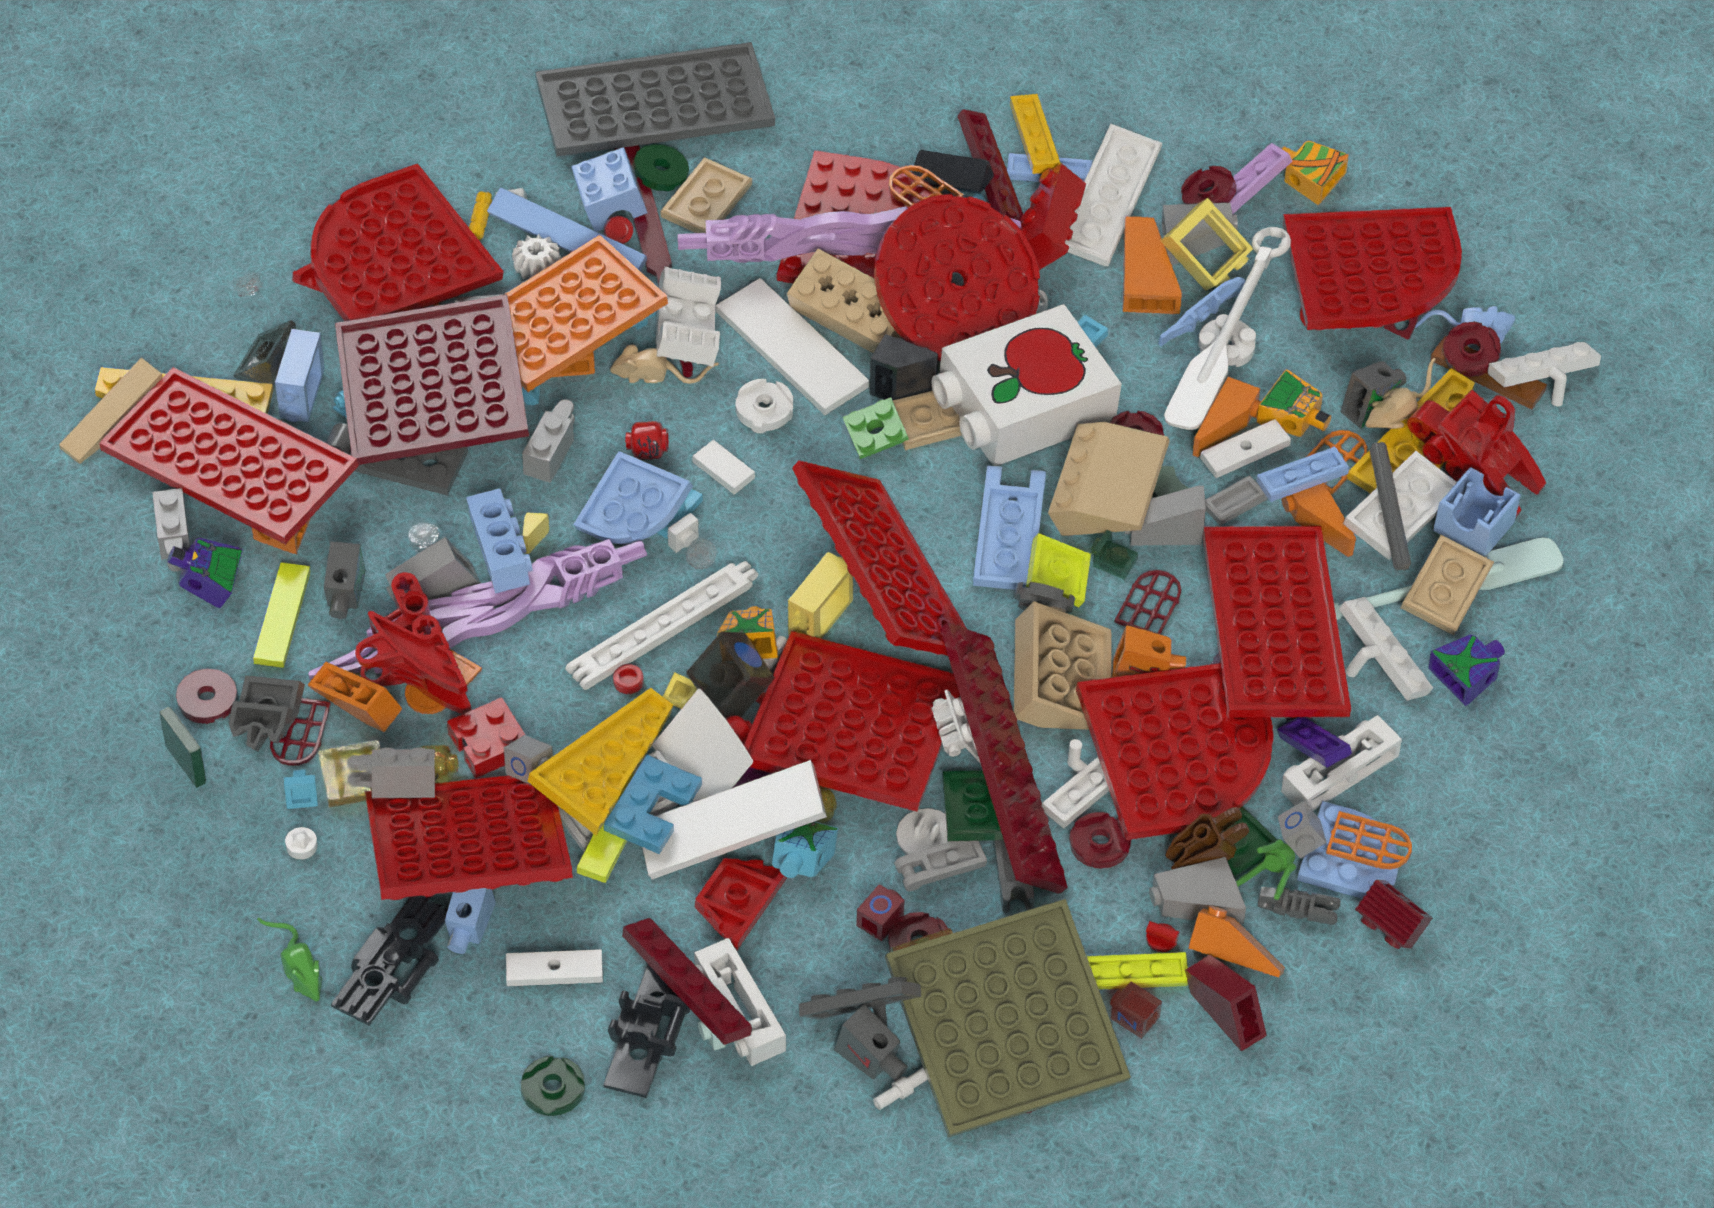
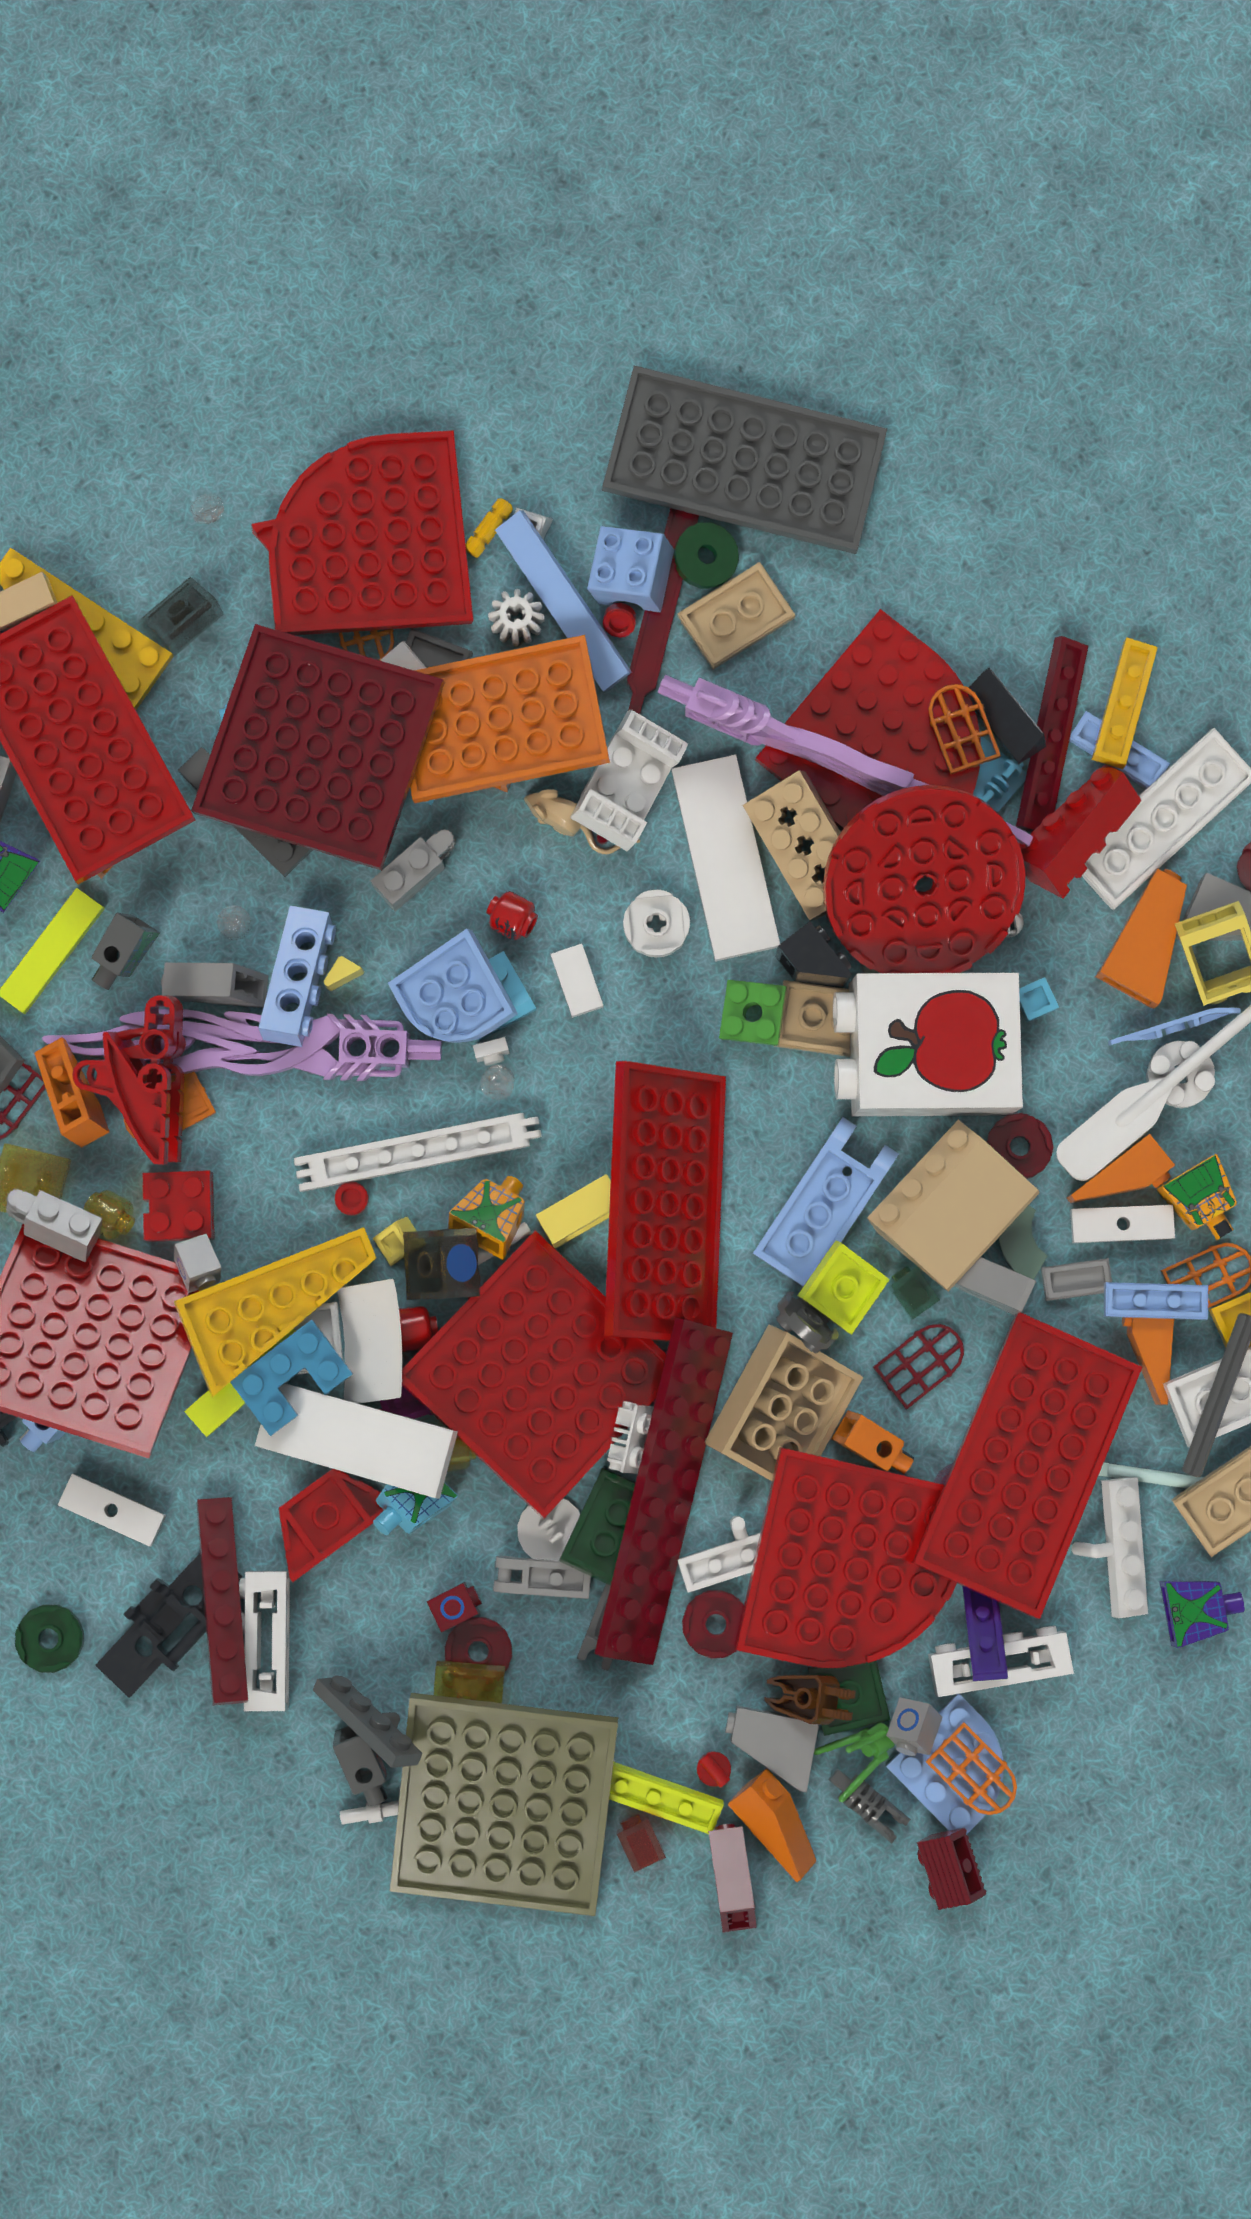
camera: 30 degrees right, 30 degrees up
(299, 375) = (195, 667): light blue window -> none

